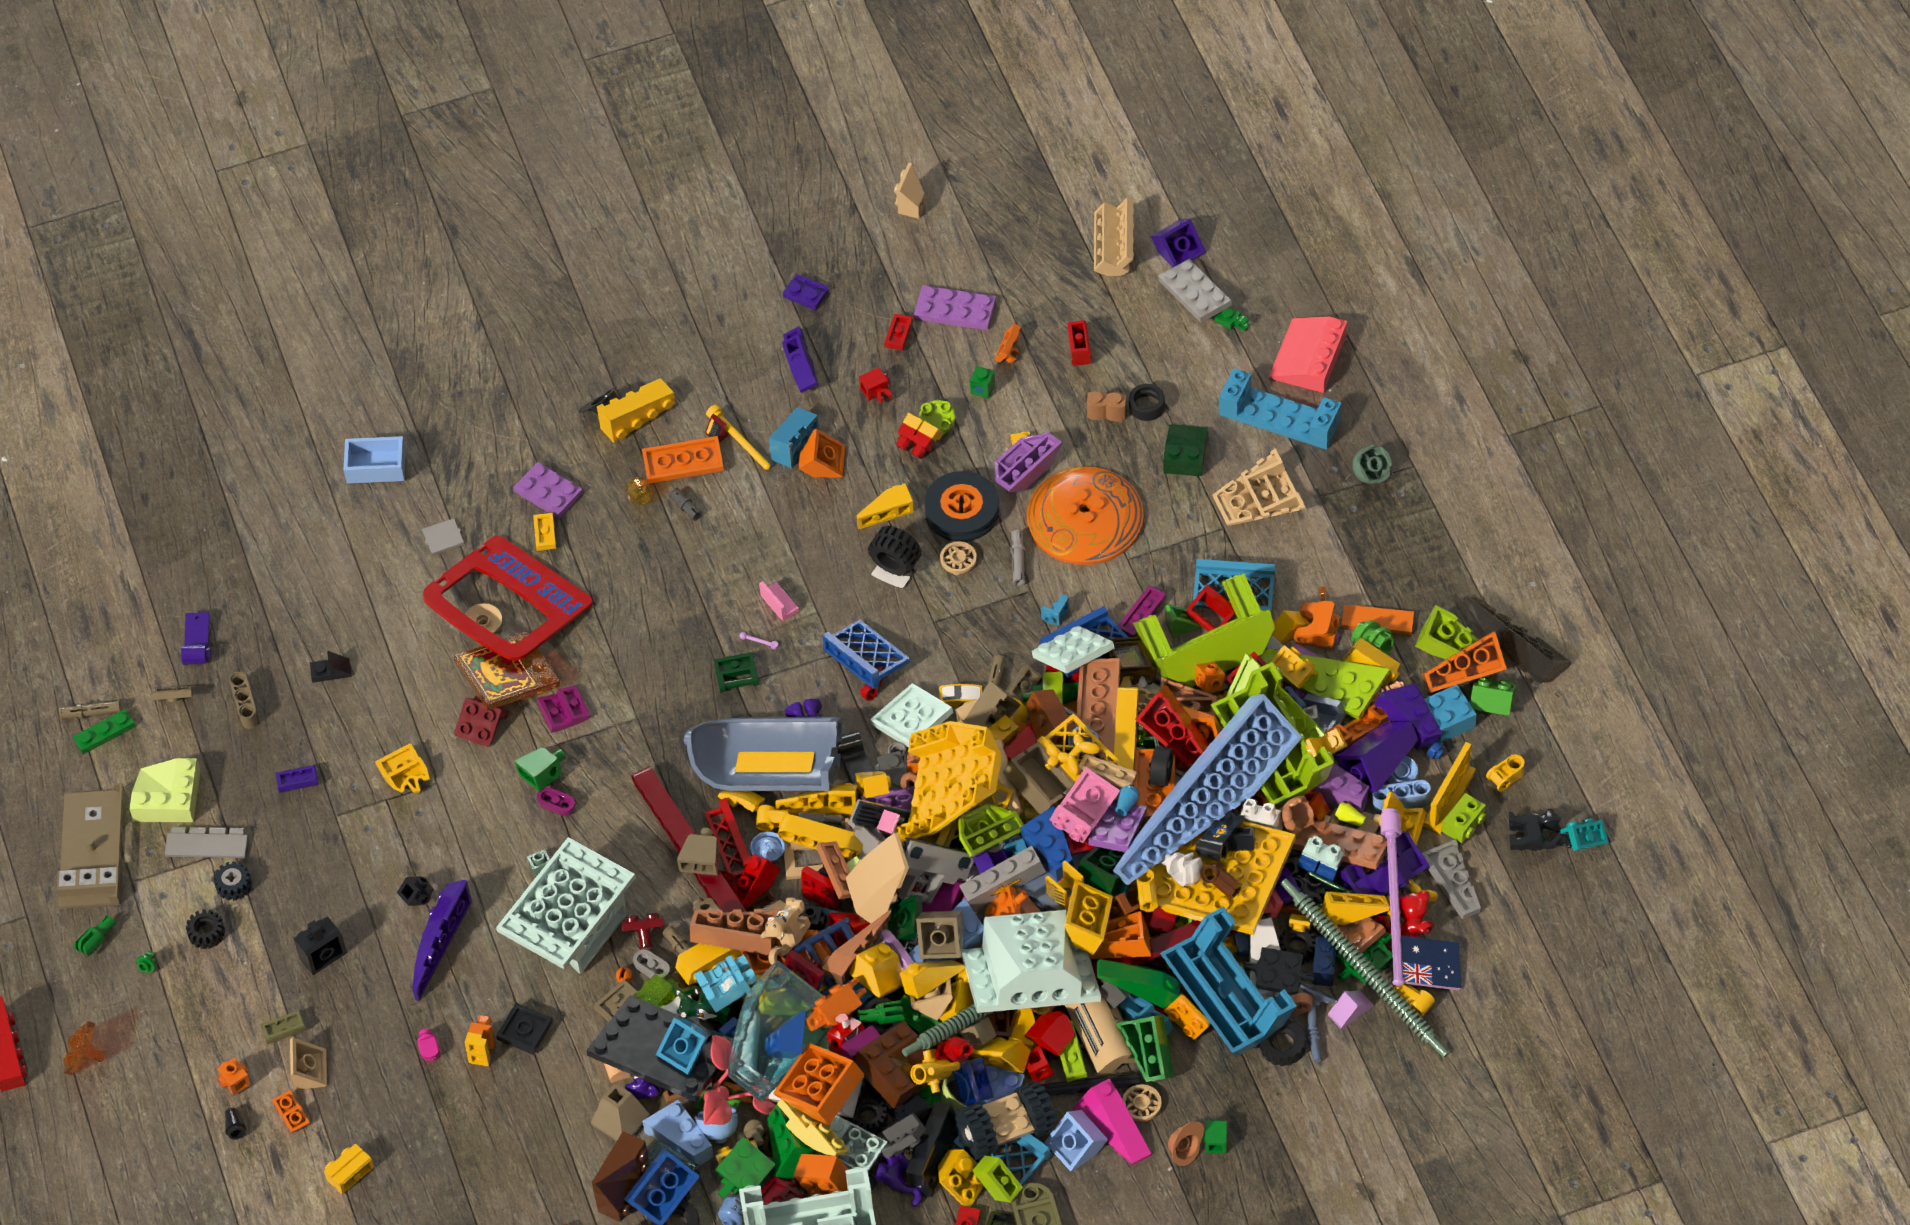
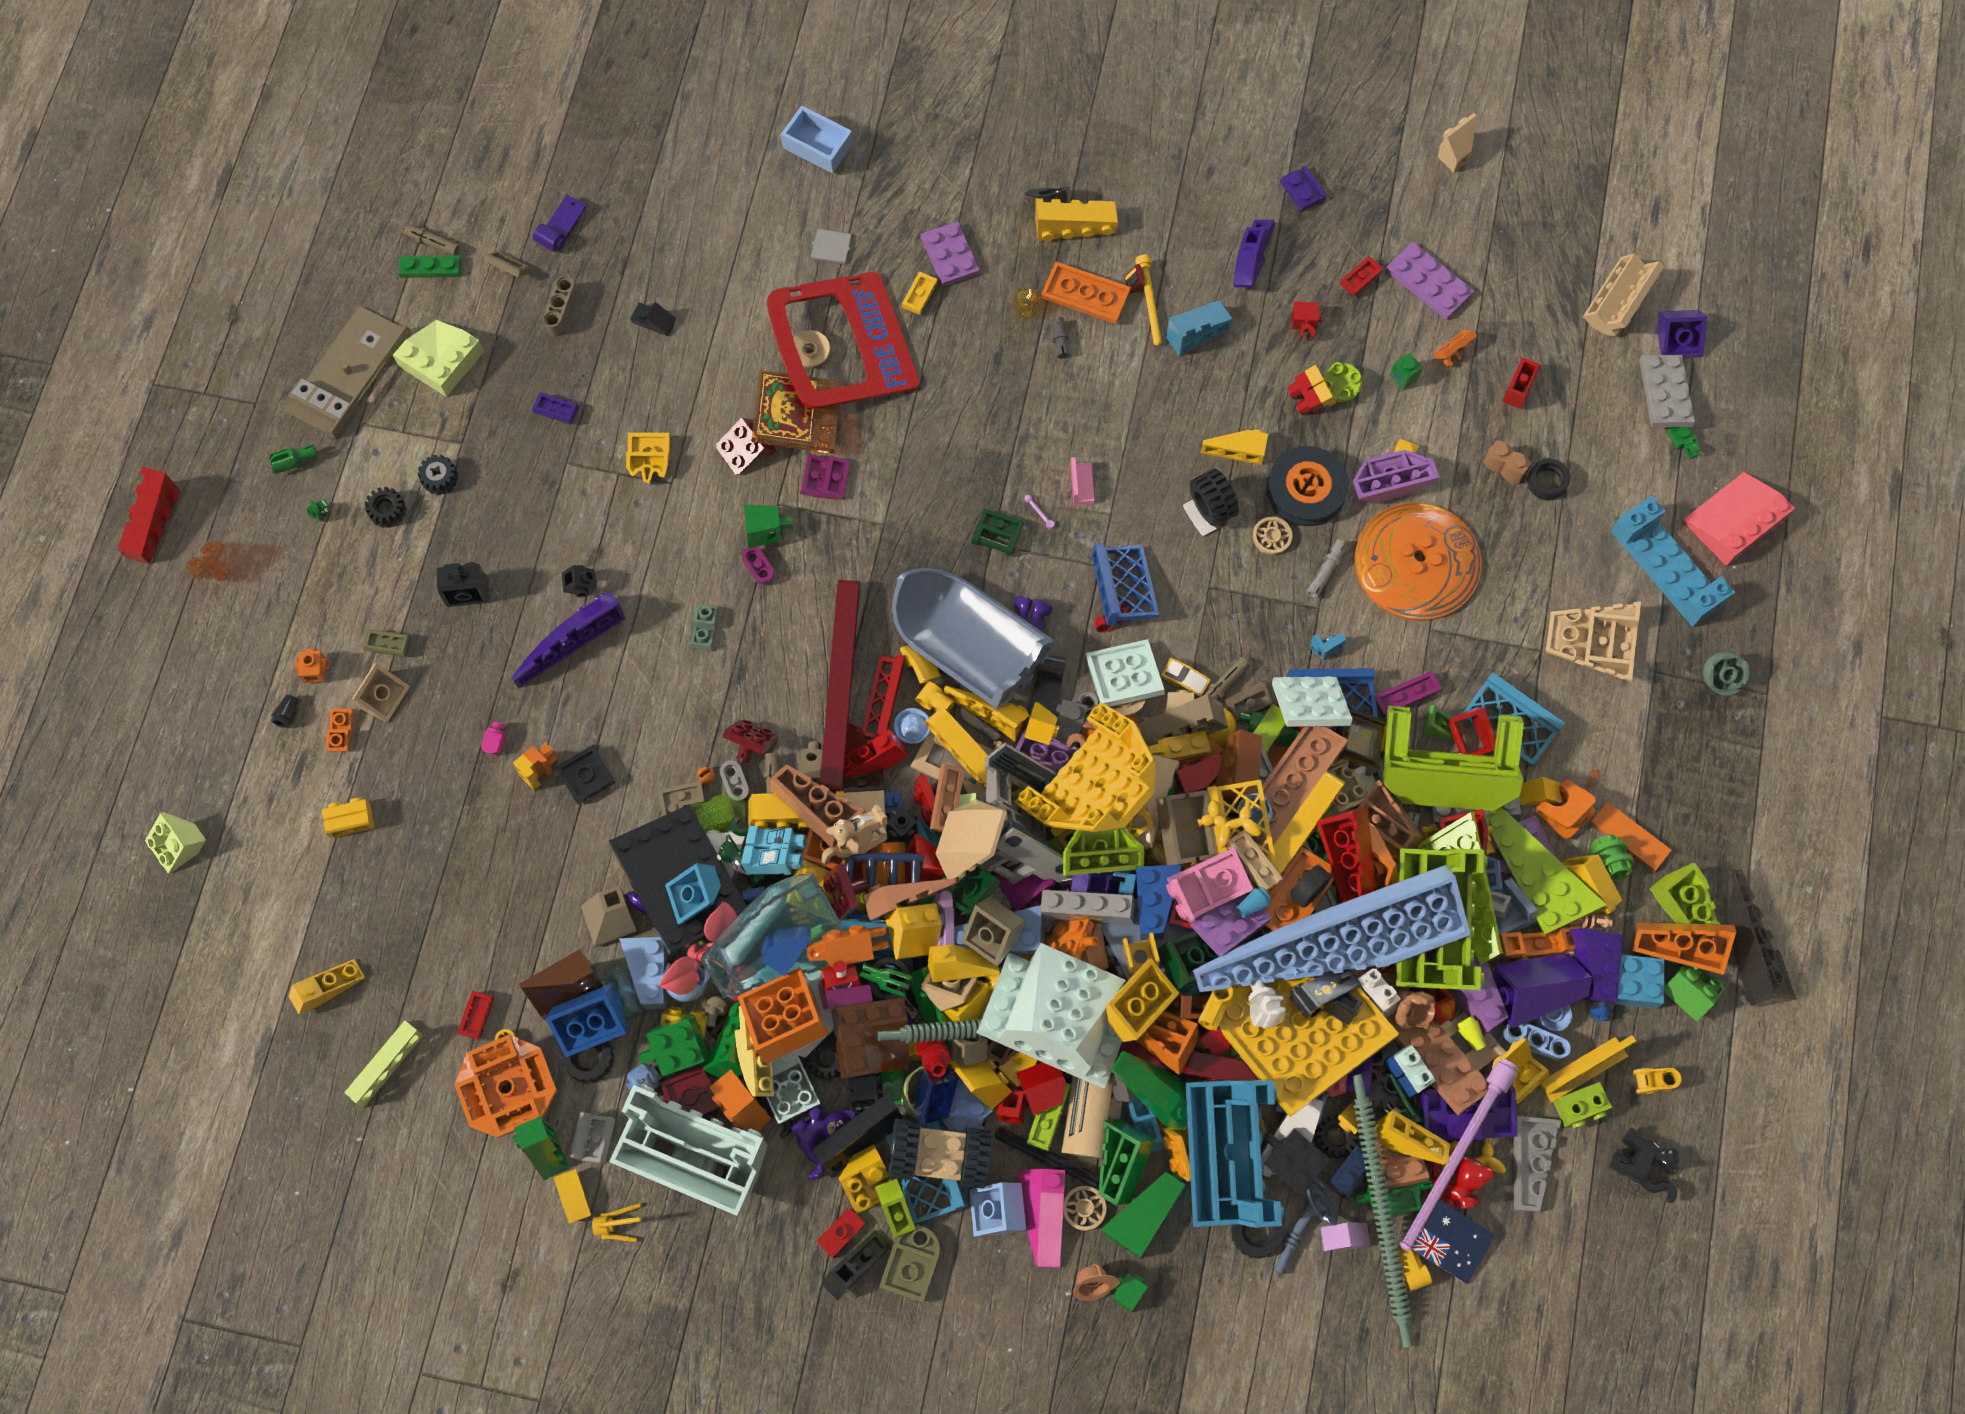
camera: 30 degrees right, 15 degrees up
(212, 845) = (443, 423): light grey windscreen -> none
(570, 907) = (688, 685): light aqua wedge -> none
(700, 854) = (838, 703): dark tan torso -> none
(774, 762) = (972, 644): yellow sticker -> none
(822, 456) = (1212, 361): orange slope -> none
(888, 822) = (1023, 779): bright pink slope -> none
(903, 1134) = (834, 1113): dark grey bracket -> none
(933, 1071) = (897, 1067): yellow pin -> none
(1185, 450) = (1554, 549): dark green slope -> none
(1189, 1083) = (1141, 1219): none -> green slope
(1209, 677) = (1425, 807): orange brick -> none
(1222, 880) = (1293, 1035): reddish brown piece -> none
(1293, 667) = (1514, 844): yellow bracket -> none
(1304, 1003) = (1293, 1203): nougat beam -> none
(1331, 741) = (1489, 954): yellow bracket -> none
(1587, 834) = (1694, 1199): teal bracket -> none

